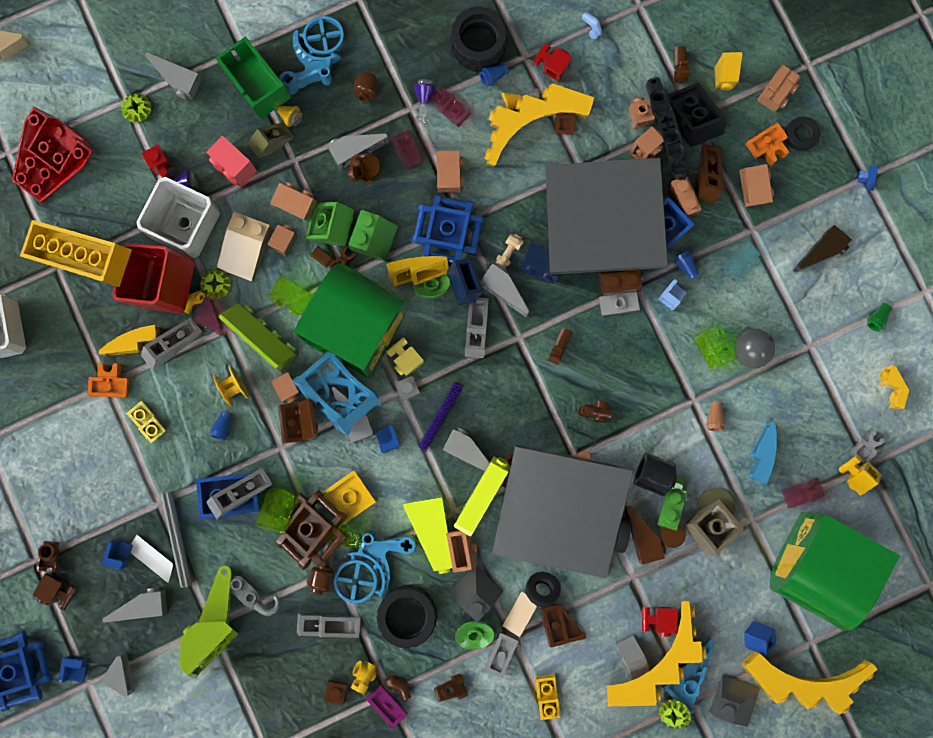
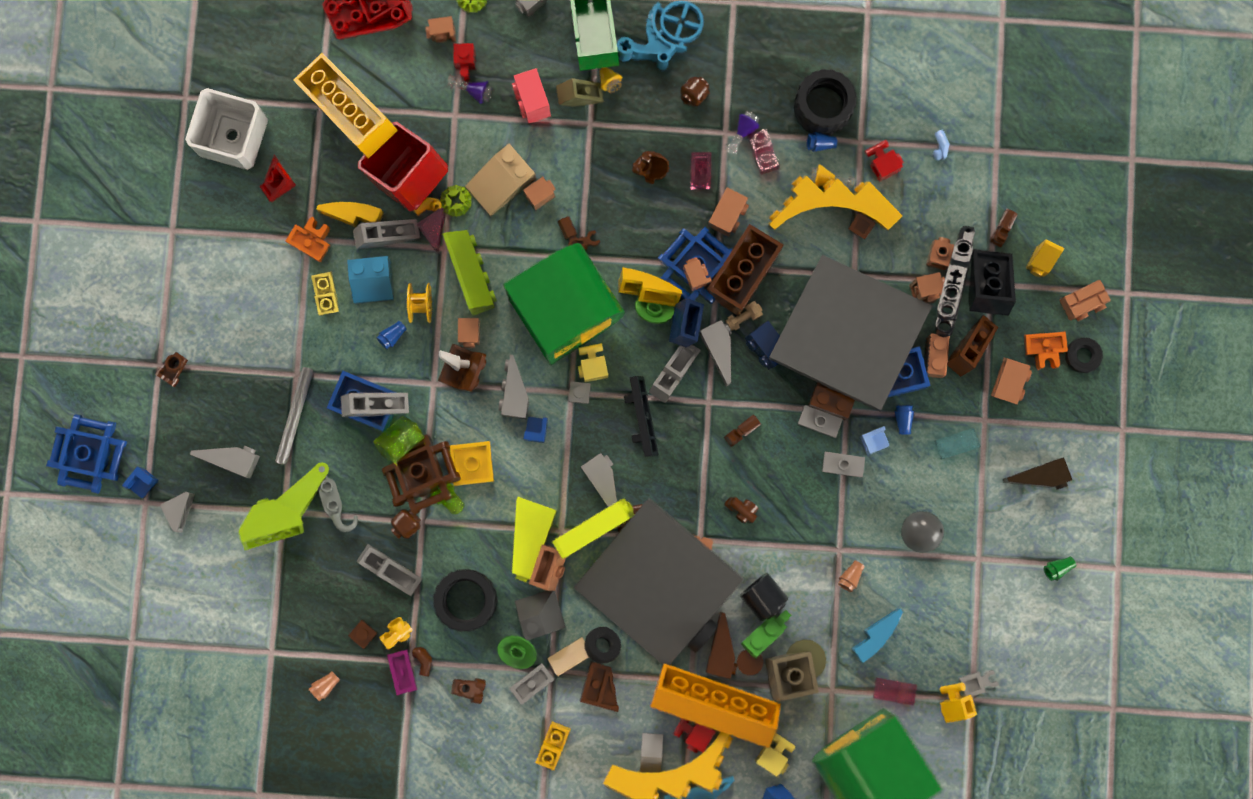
camera: 30 degrees right, 0 degrees up
(52, 588) = (159, 399): reddish brown brick -> none
(53, 349) = (276, 181): none -> red slope
(117, 554) = (234, 400): blue panel -> none
(124, 148) = (441, 29): none -> nougat brick
(152, 558) = (262, 420): white sticker -> none
(168, 207) = (450, 107): white plate -> none
(178, 388) = (370, 279): none -> dark azure slope
(286, 419) = (454, 360): none -> white bar
(291, 296) = (519, 250): clear neon green brick -> none
(293, 201) = (569, 163): nougat brick -> none
(330, 223) = (591, 201): bright green slope -> none
(345, 418) = (508, 389): dark azure fence -> none
(347, 147) = (647, 139): light grey slope -> none
(373, 236) = (625, 234): bright green slope -> none
(376, 552) = (468, 526): dark azure piece -> none
(432, 429) = (586, 441): dark purple piece -> none
(451, 236) = (696, 274): none -> nougat brick
(462, 367) = (640, 399): none -> black hinge
(489, 211) = (744, 269): none -> reddish brown slope
(657, 328) = (843, 464): none -> light grey plate
(666, 587) = (716, 705): none -> light orange brick
(714, 347) = (886, 510): clear neon green slope -> none
(735, 605) = (772, 759): none -> light yellow brick
(868, 177) = (1123, 431): blue tile -> none
(892, 379) = (1038, 633): yellow slope -> none

